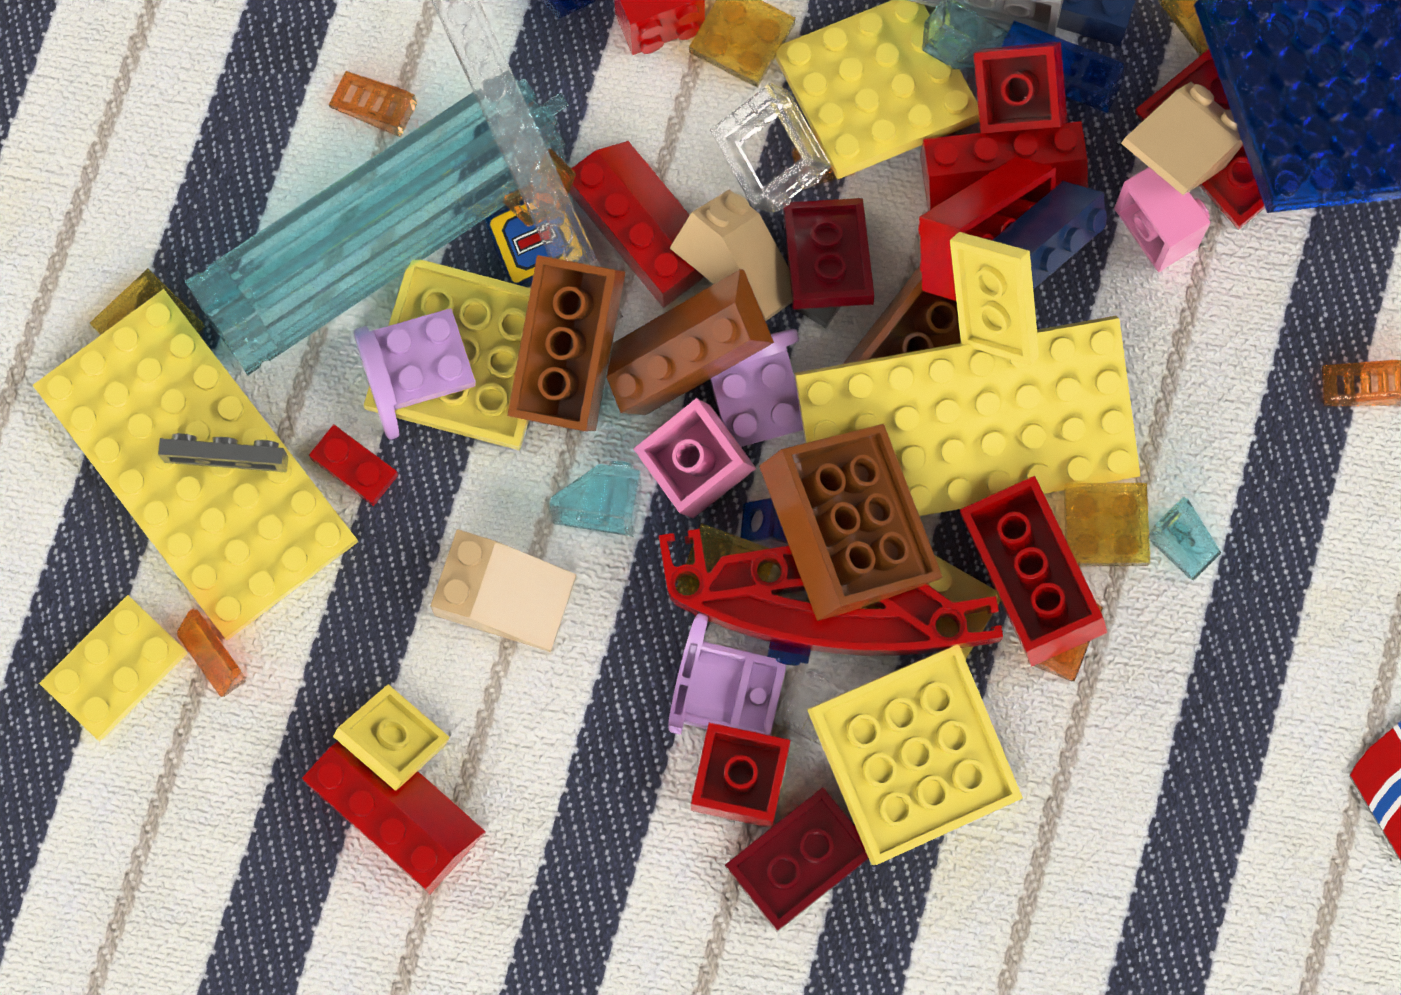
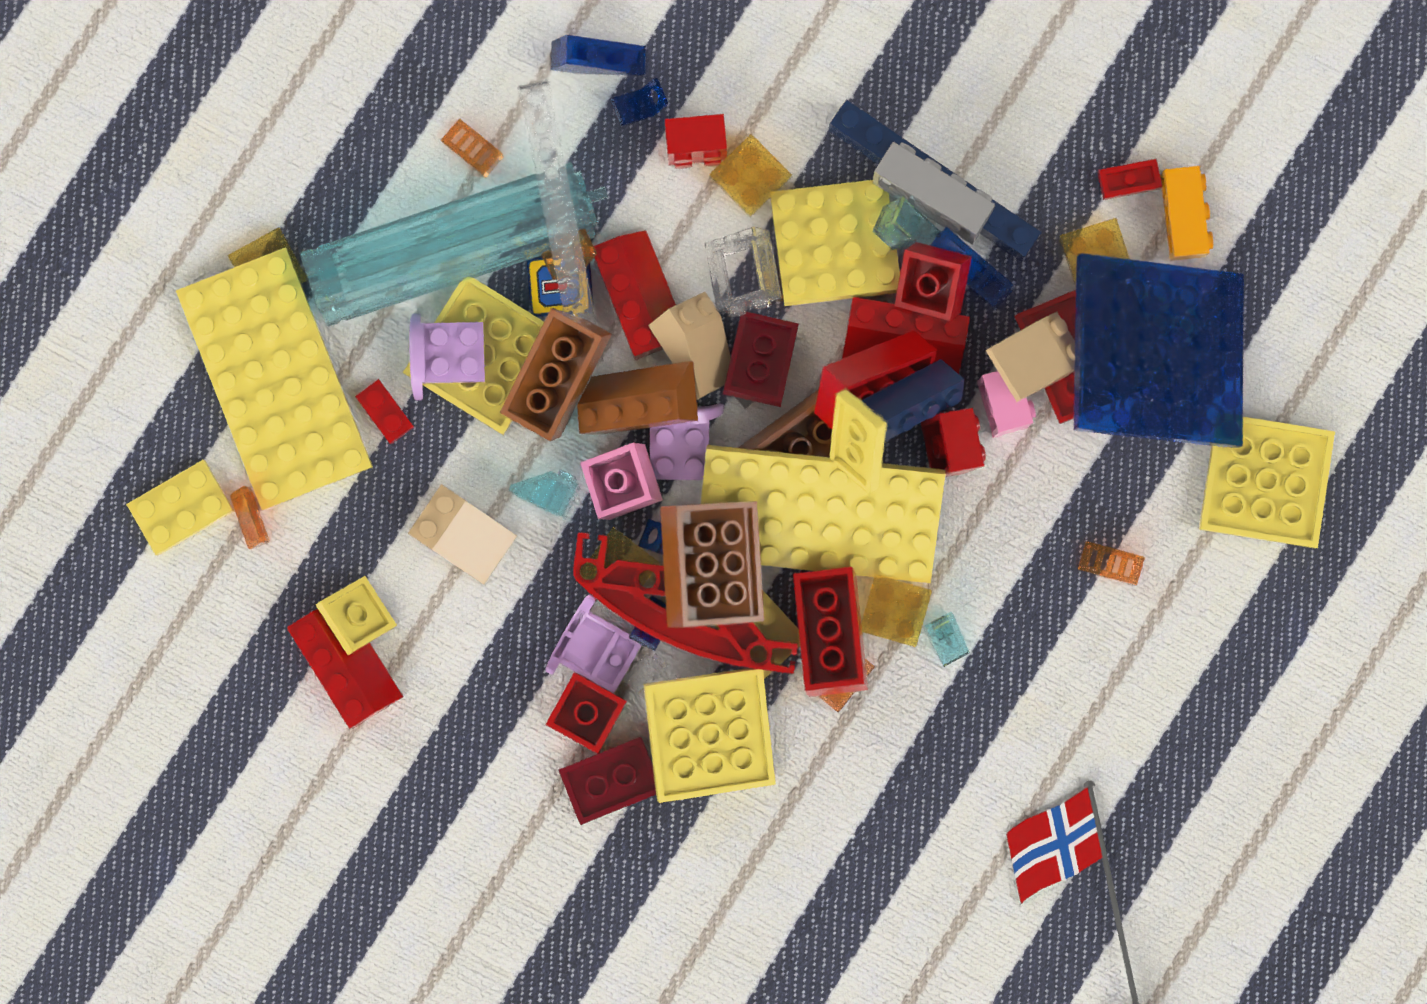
camera: 15 degrees right, 10 degrees up
(223, 453) = (294, 381): dark grey plate -> none
(1113, 280) = (954, 442): none -> red brick

